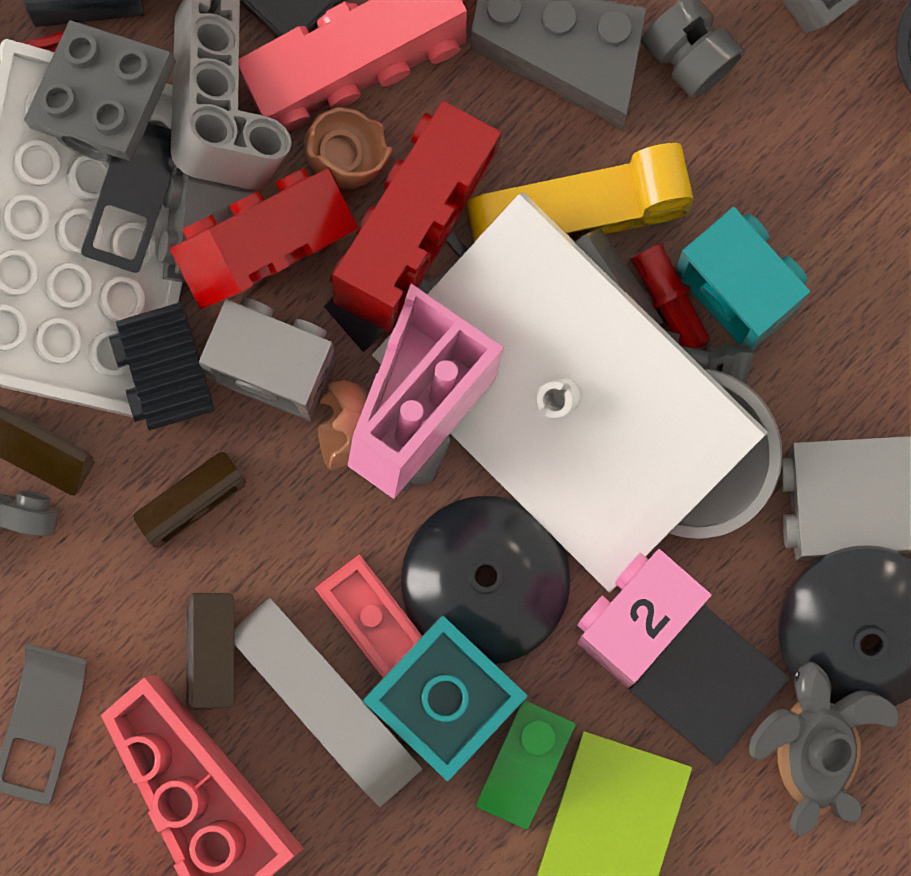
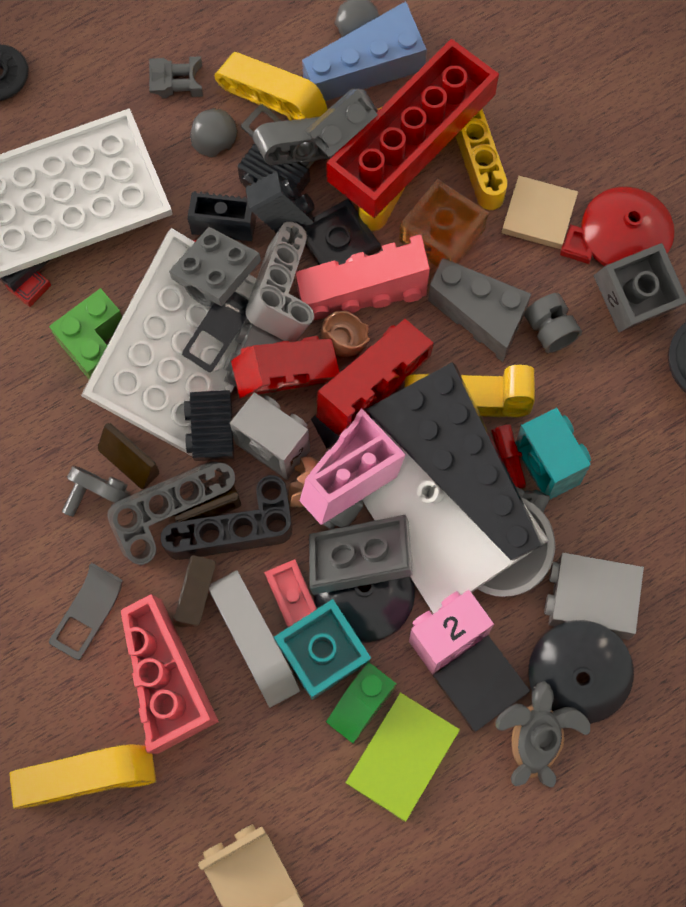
camera: 15 degrees right, 10 degrees down
(135, 517) = (172, 504): none -> dark grey beam
(234, 525) = (227, 525): none -> black beam
(465, 525) = (359, 555): none -> dark grey tile
(571, 306) = (450, 442): none -> black wing

